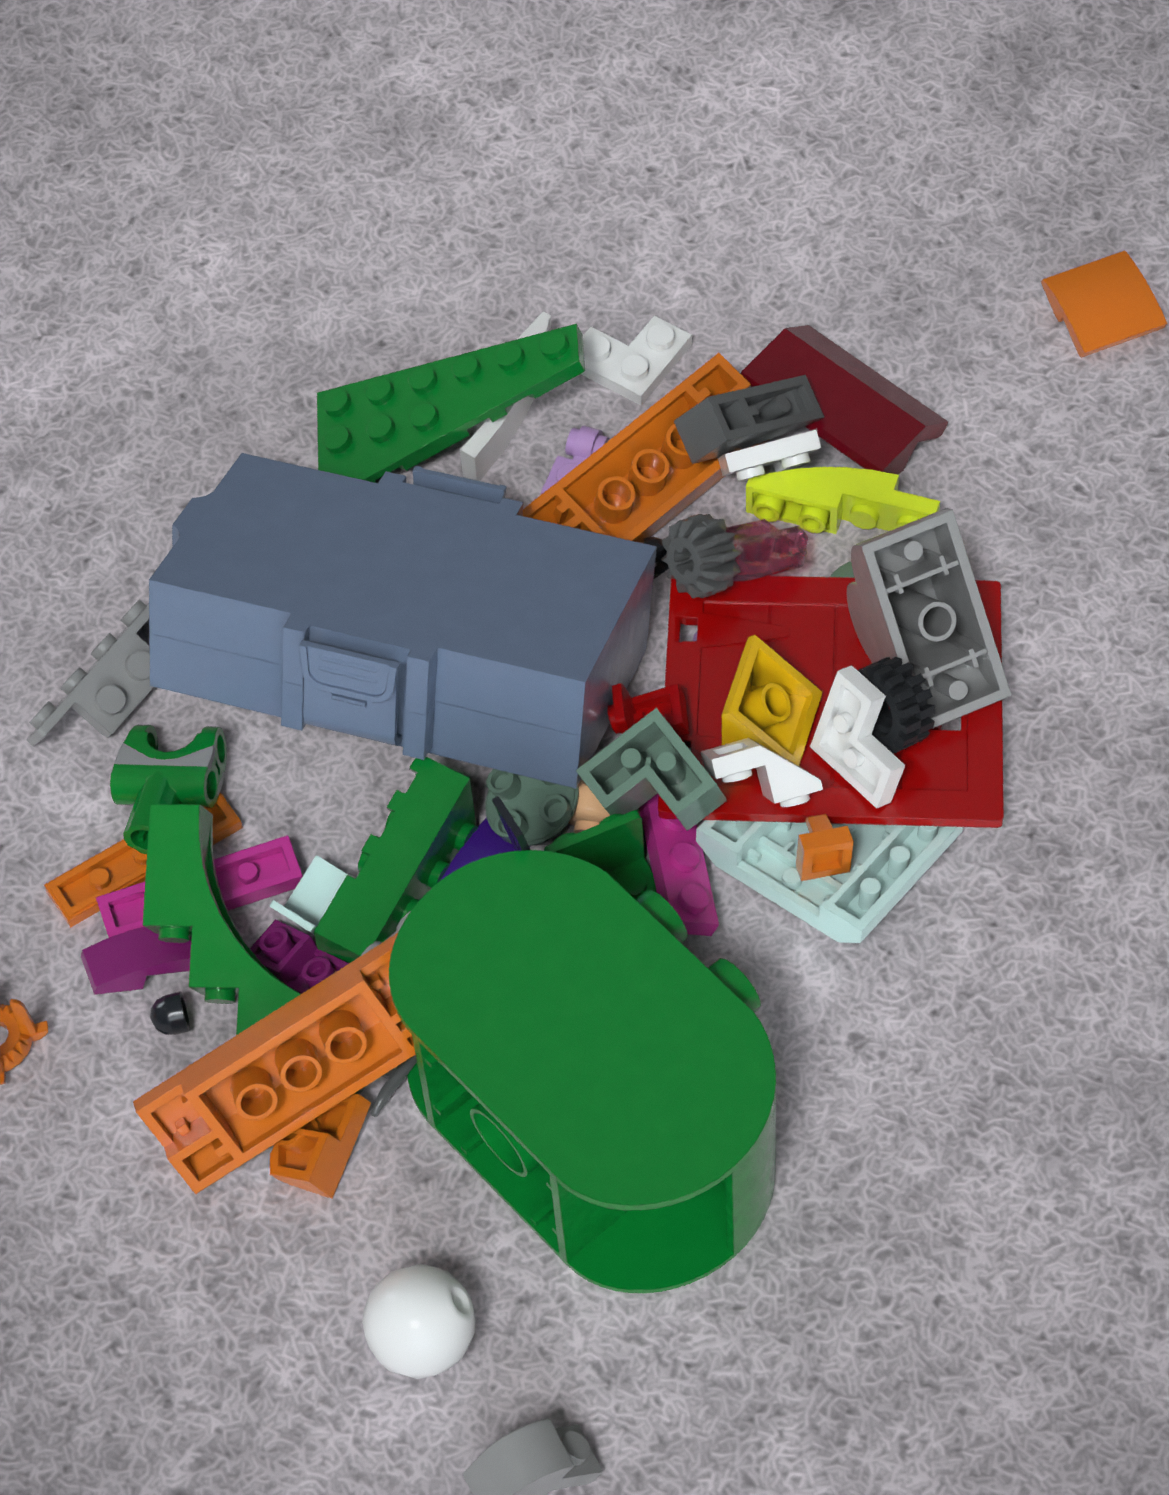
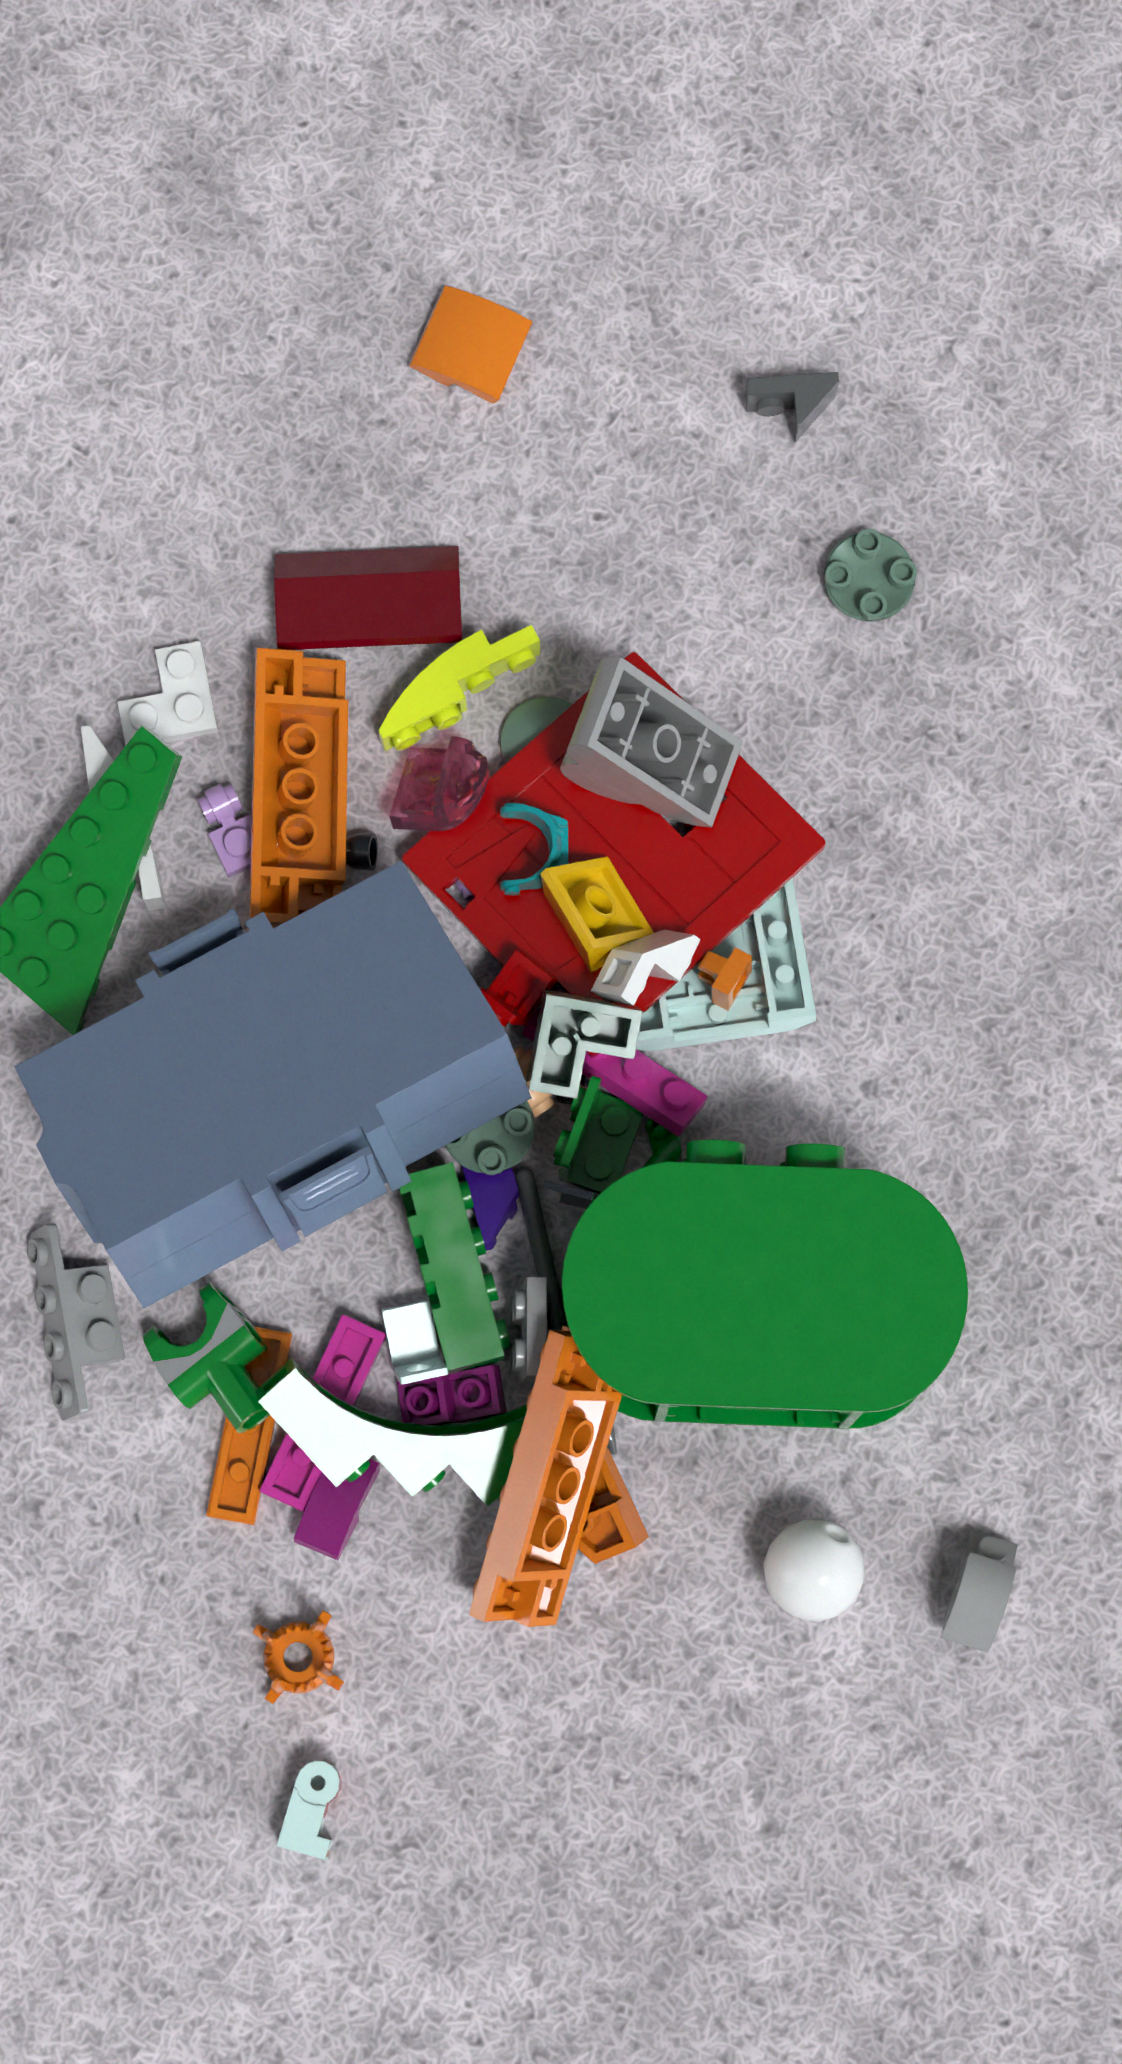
camera: 50 degrees left, 20 degrees up
(170, 1014) = (403, 1521): black hinge -> none
(701, 555) = (425, 832): dark grey gear -> none
(747, 417) = (338, 686): dark grey slope -> none
(781, 453) = (376, 691): white plate -> none
(793, 648) = (555, 831): none -> teal helmet
(847, 739) = (676, 885): white plate -> none
(909, 712) = (681, 833): black tyre -> none

